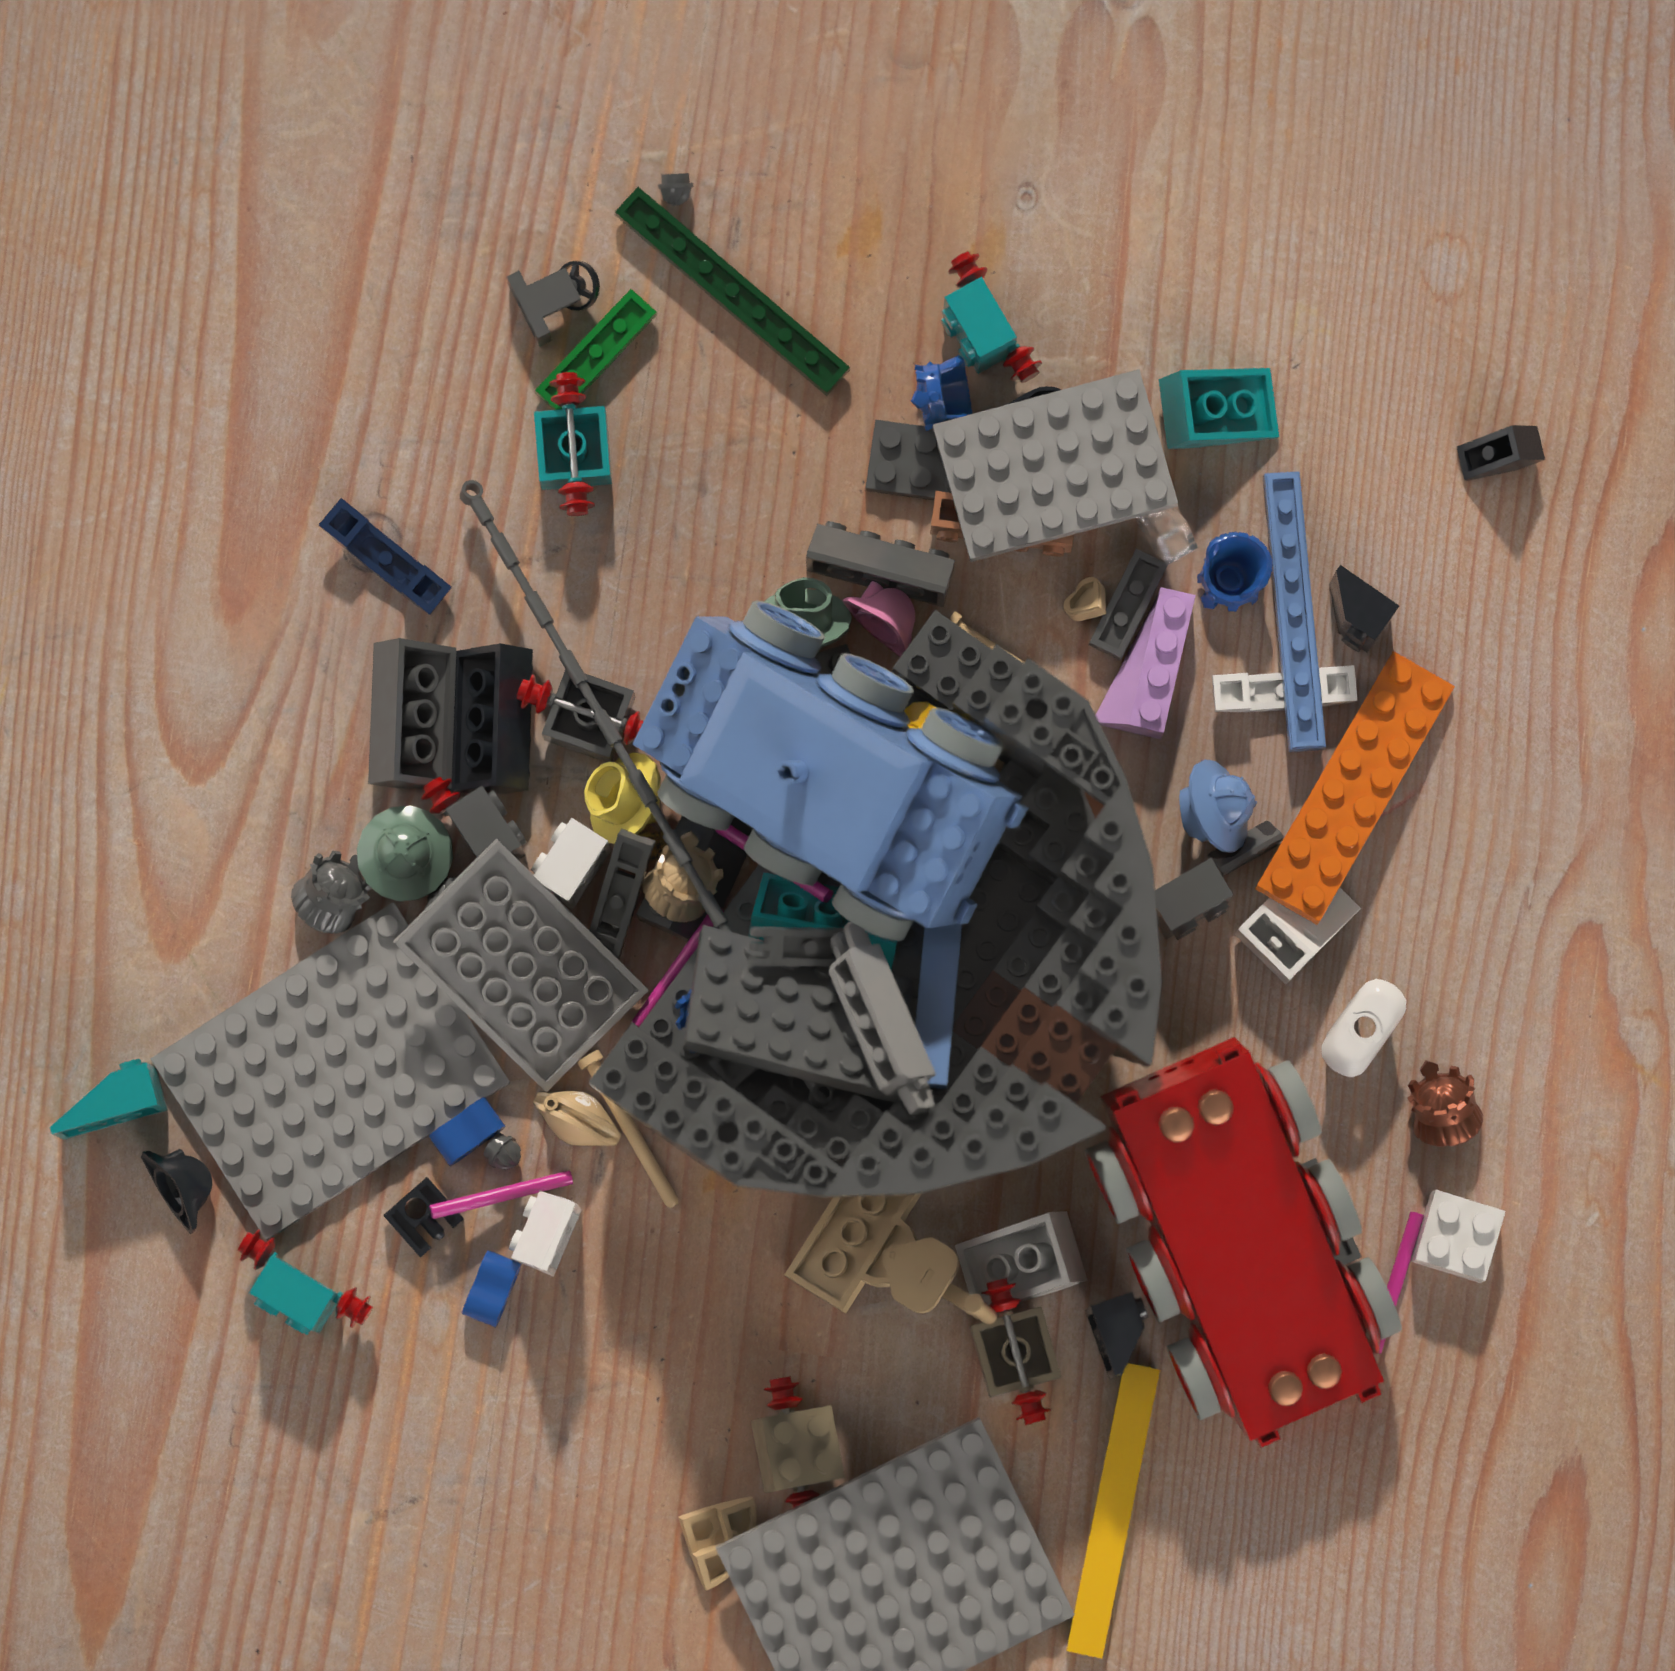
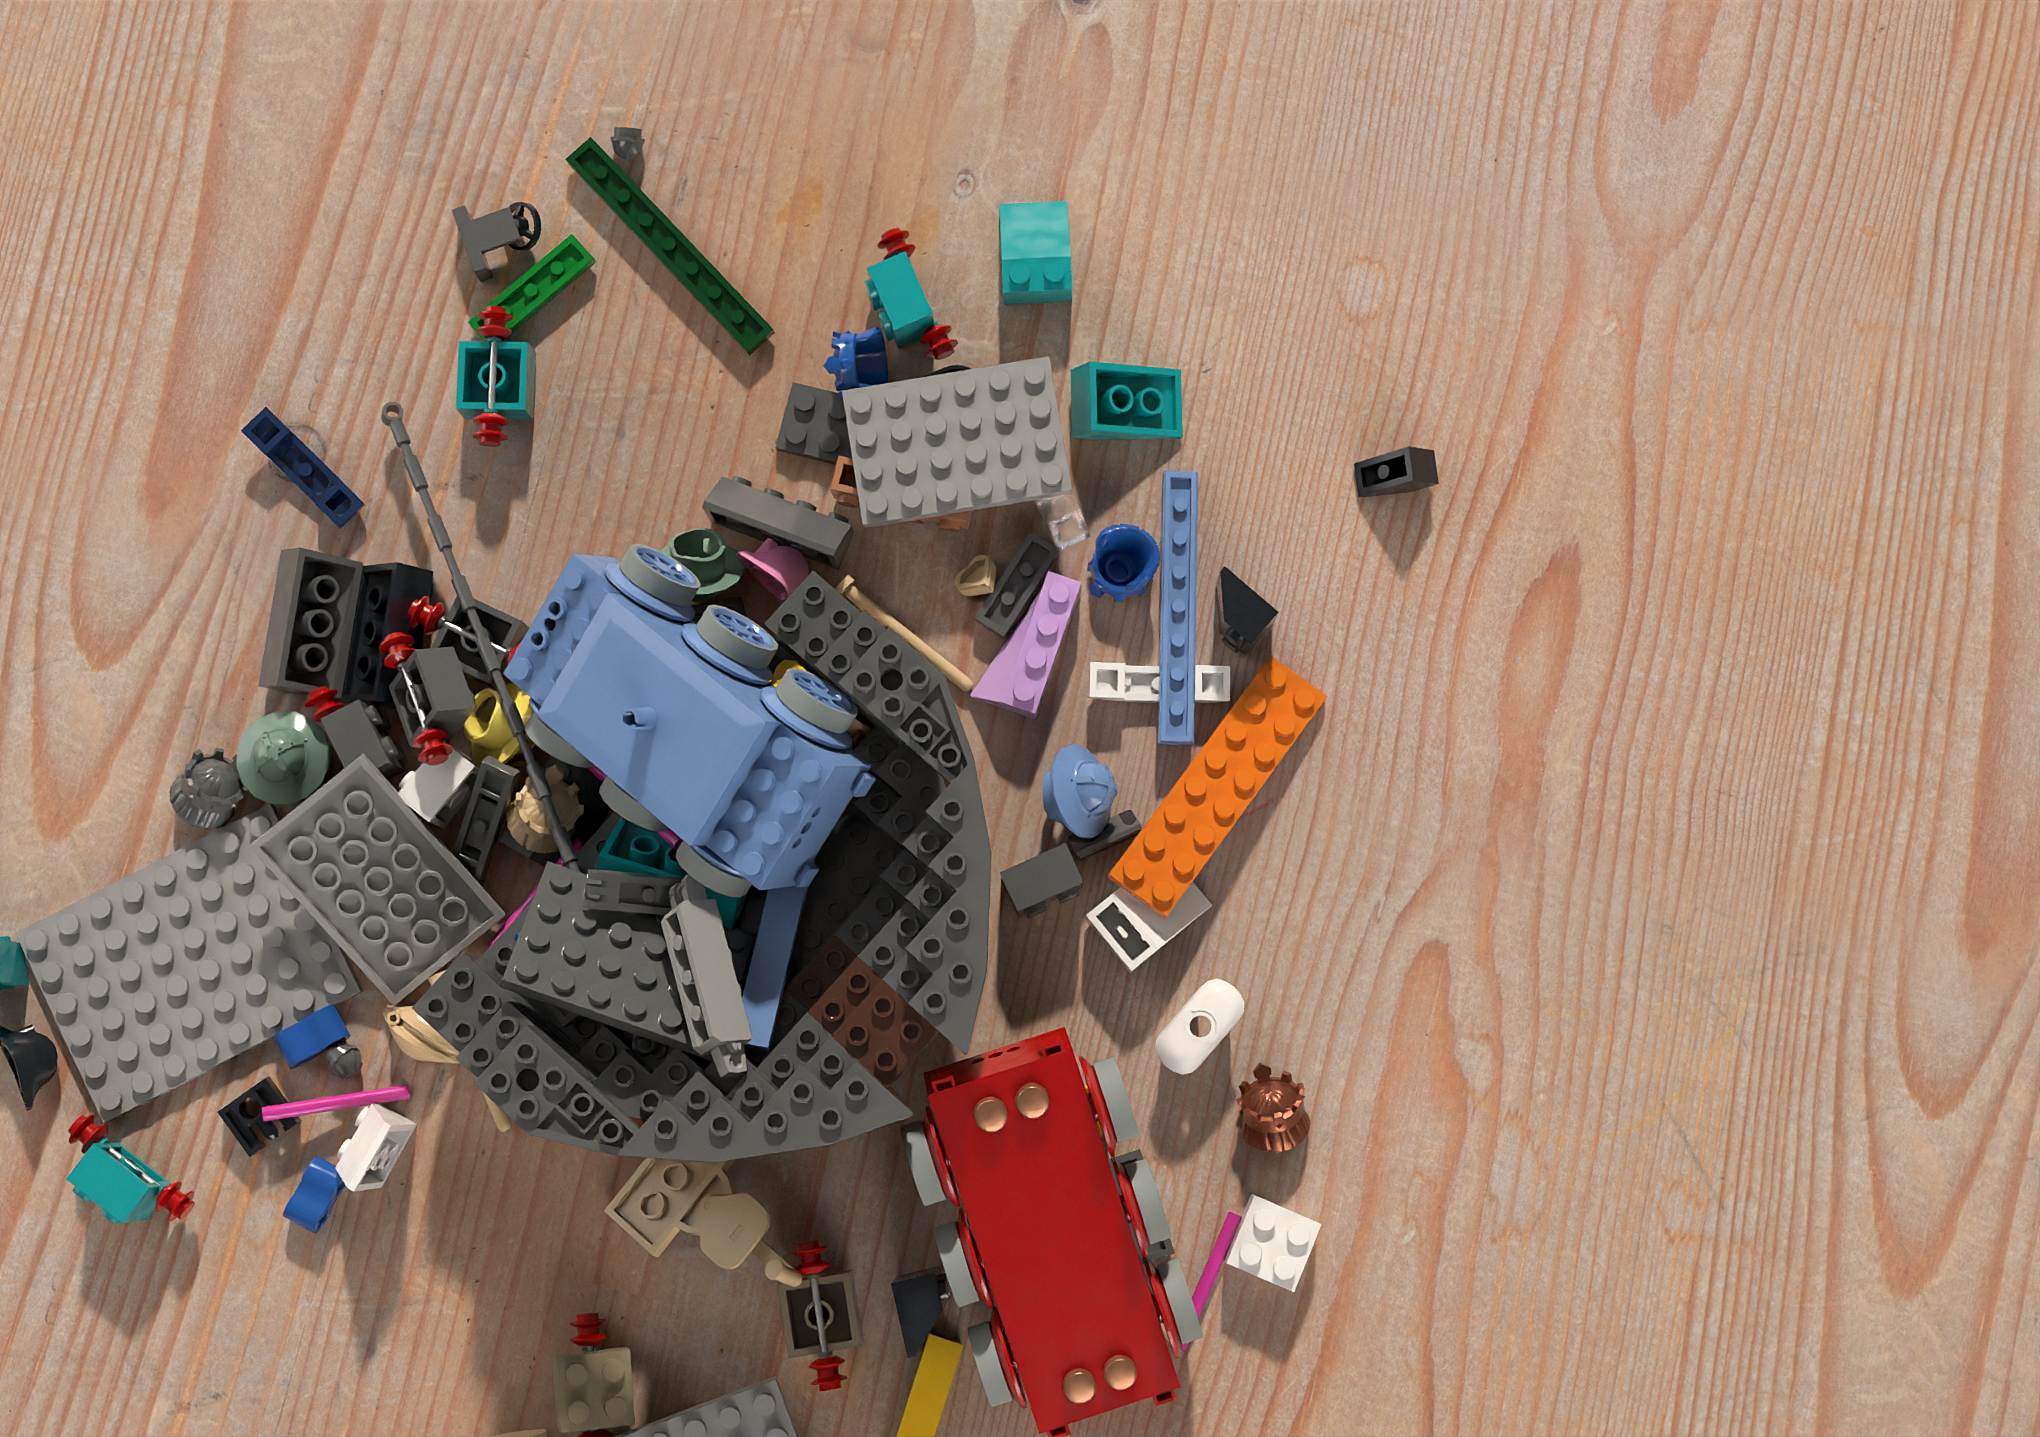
camera: 10 degrees right, 0 degrees up
(551, 774) = (428, 695): none -> dark grey brick
(1033, 1254) = (846, 1218): white slope -> none
(1109, 261) = (1035, 252): none -> teal slope

